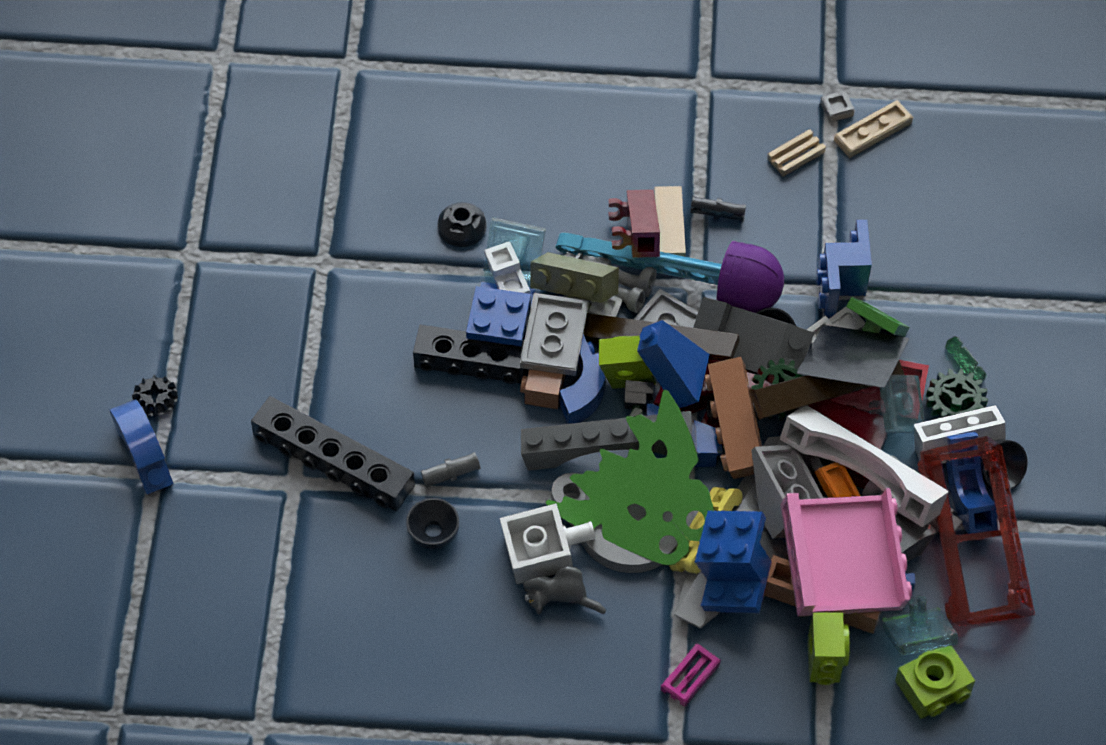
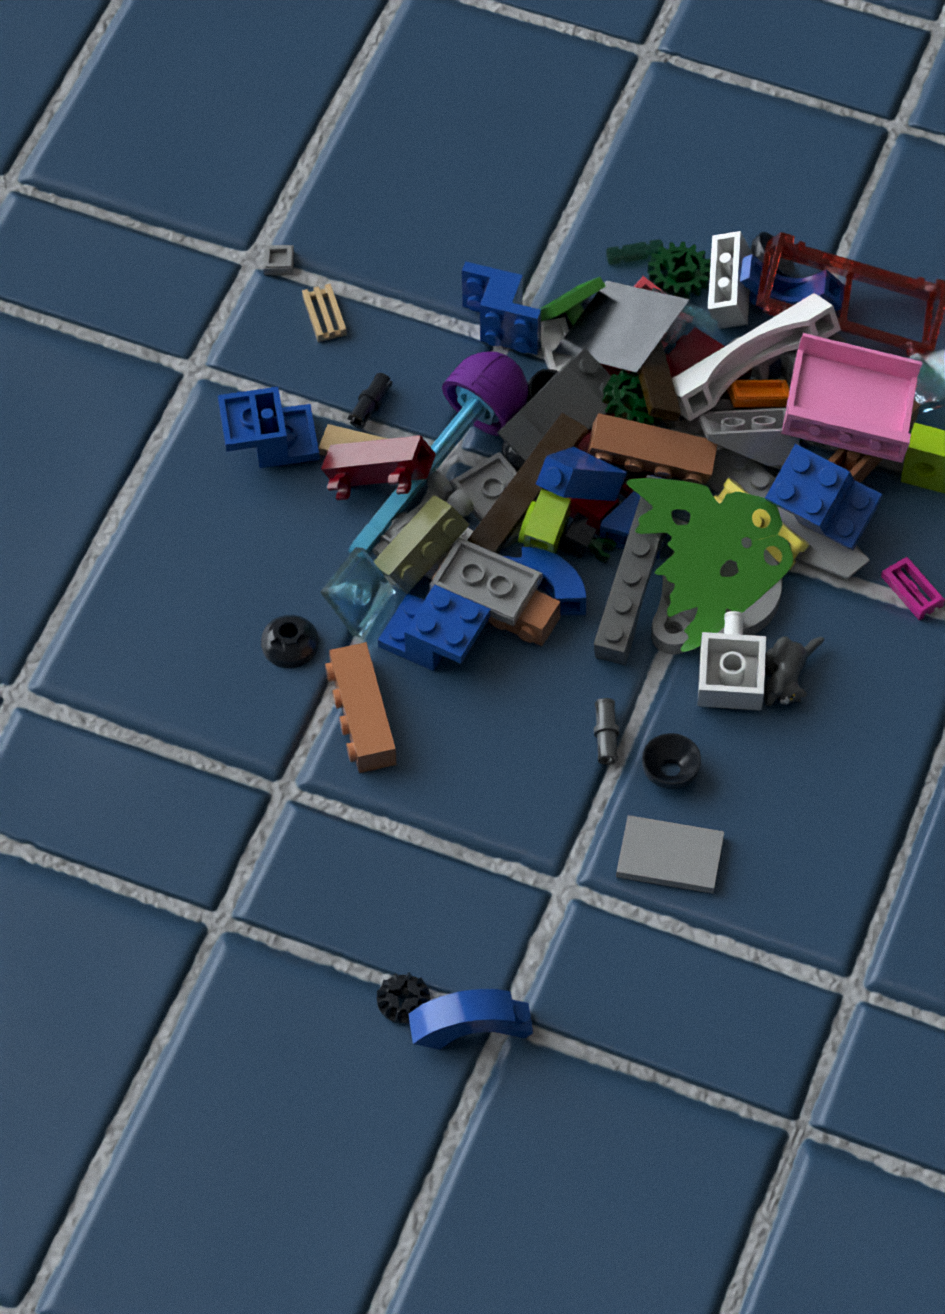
camera: 70 degrees left, 0 degrees up
(325, 440) = (603, 782): black brick -> none
(347, 551) = (670, 854): none -> light grey tile
(411, 288) = (362, 708): none -> nougat brick
(432, 340) = (454, 714): black brick -> none
(506, 268) = (378, 605): white slope -> none
(651, 141) = (261, 423): none -> blue bracket
(873, 128) = (321, 238): tan tile -> none

